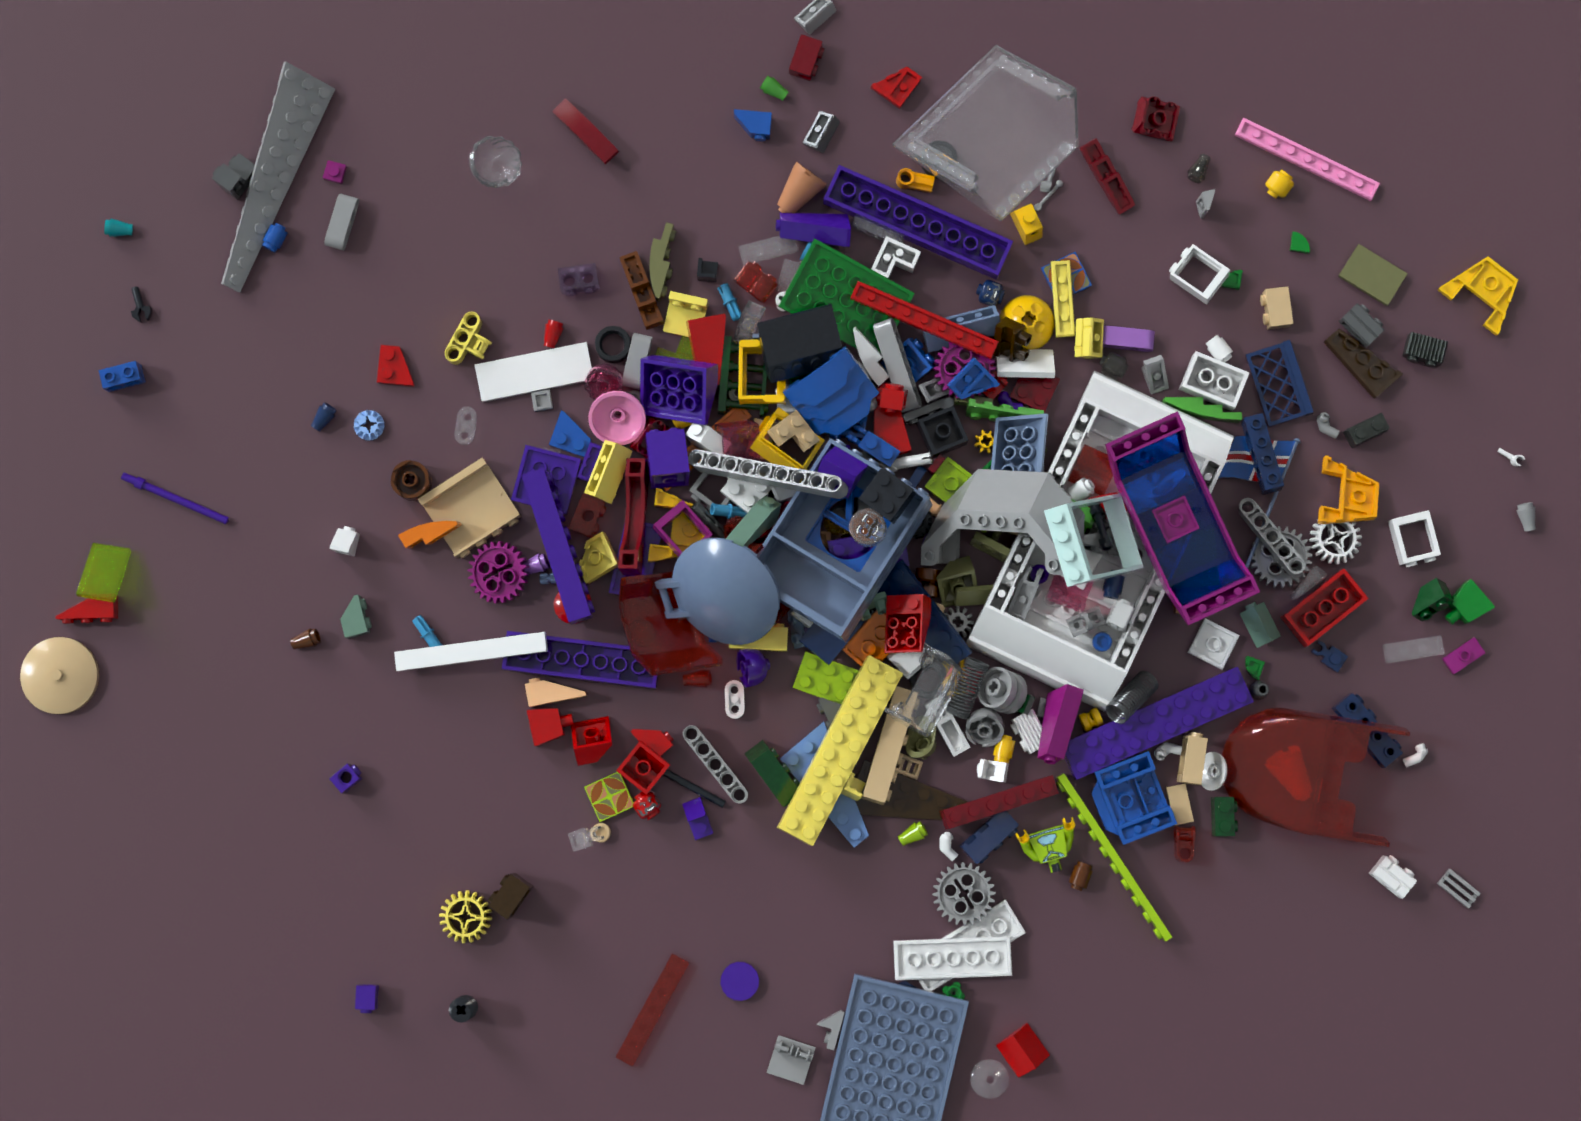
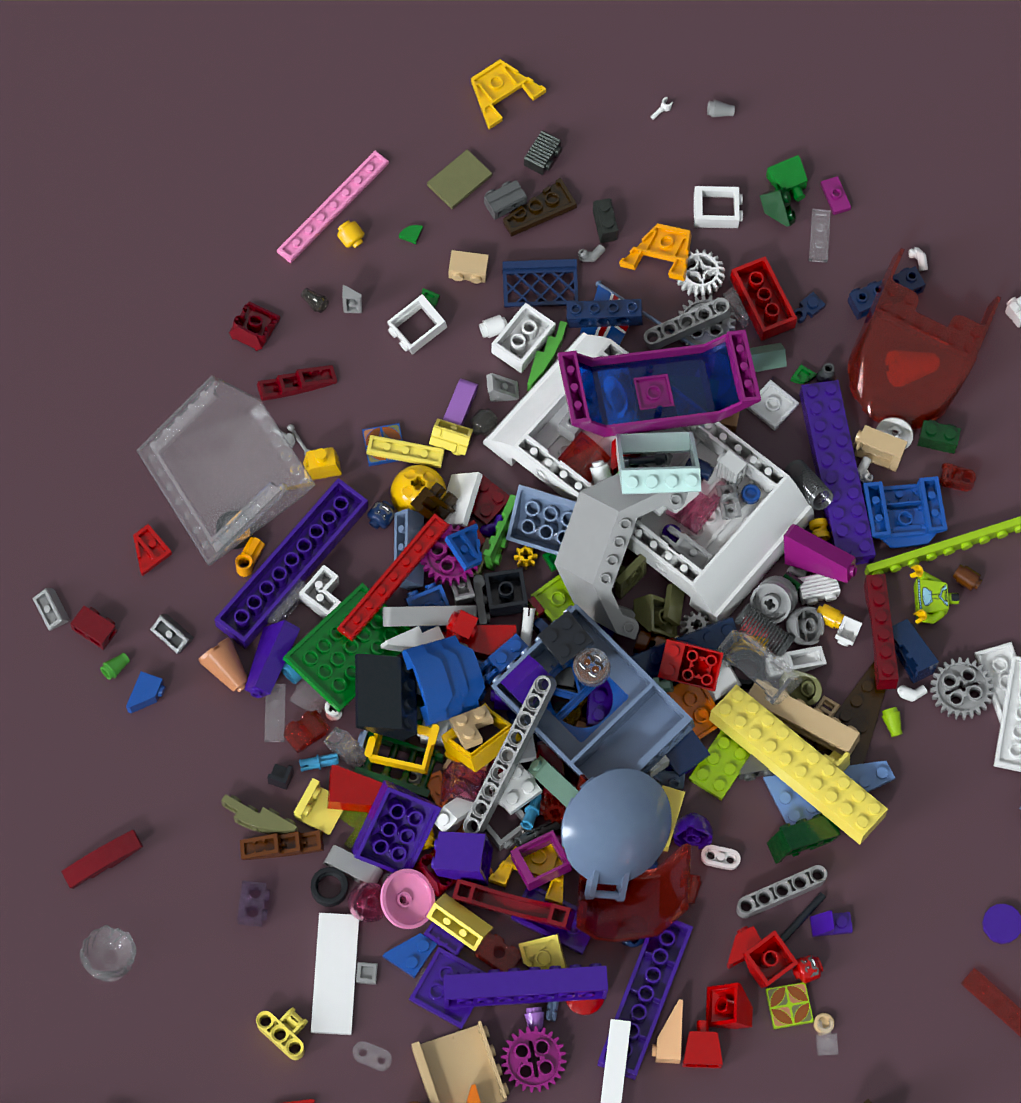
camera: 80 degrees left, 15 degrees down
(552, 333) = (299, 943): red cone -> none
(1180, 803) = (913, 471): tan tile -> none

